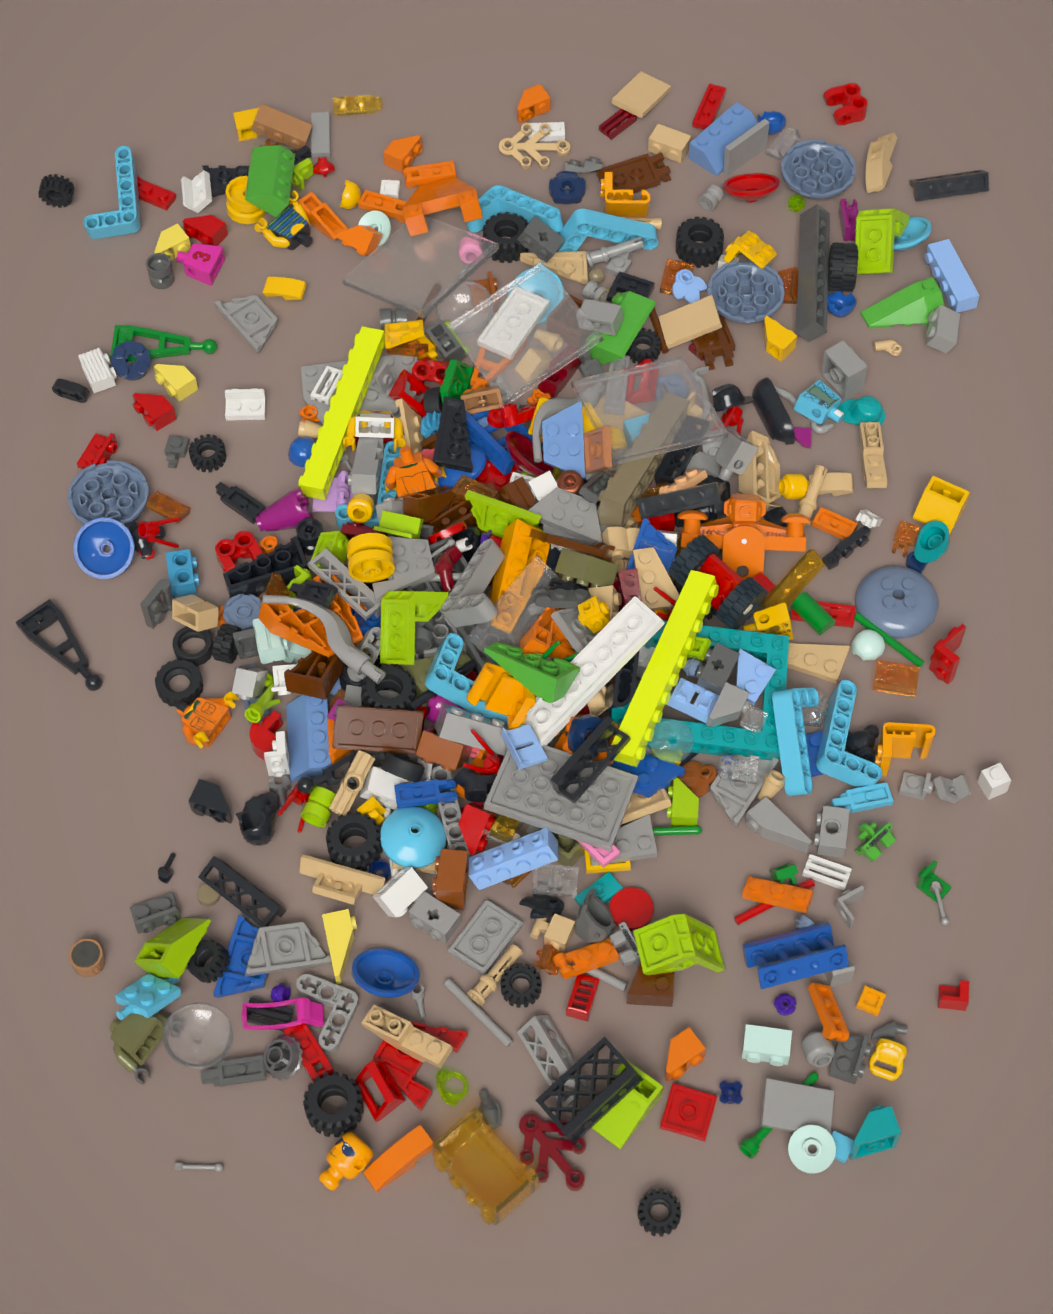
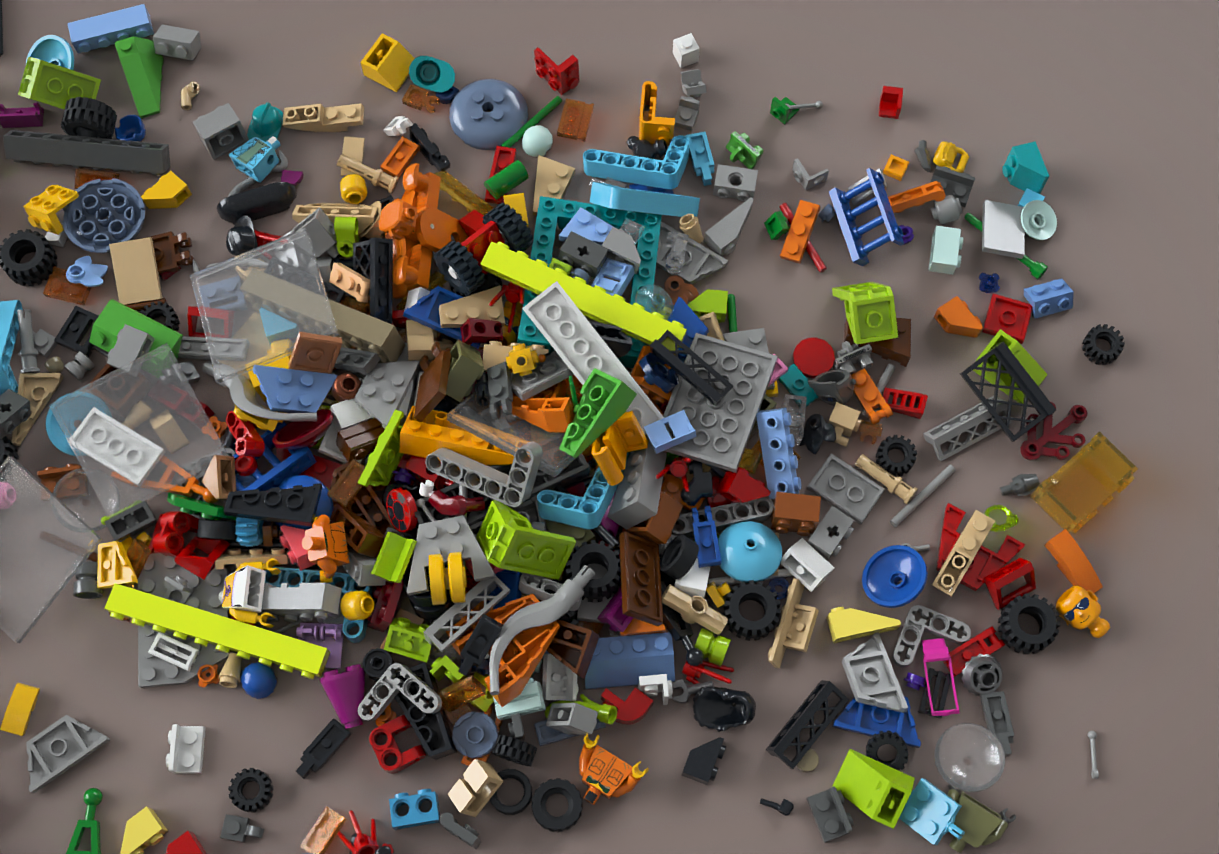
camera: 90 degrees left, 10 degrees up
(291, 544) = (394, 686): none -> light grey beam
(715, 1156) = (1049, 298): none -> medium blue bracket
(737, 476) = (346, 234): none -> lime piece
(819, 864) = (779, 179): white tile -> none

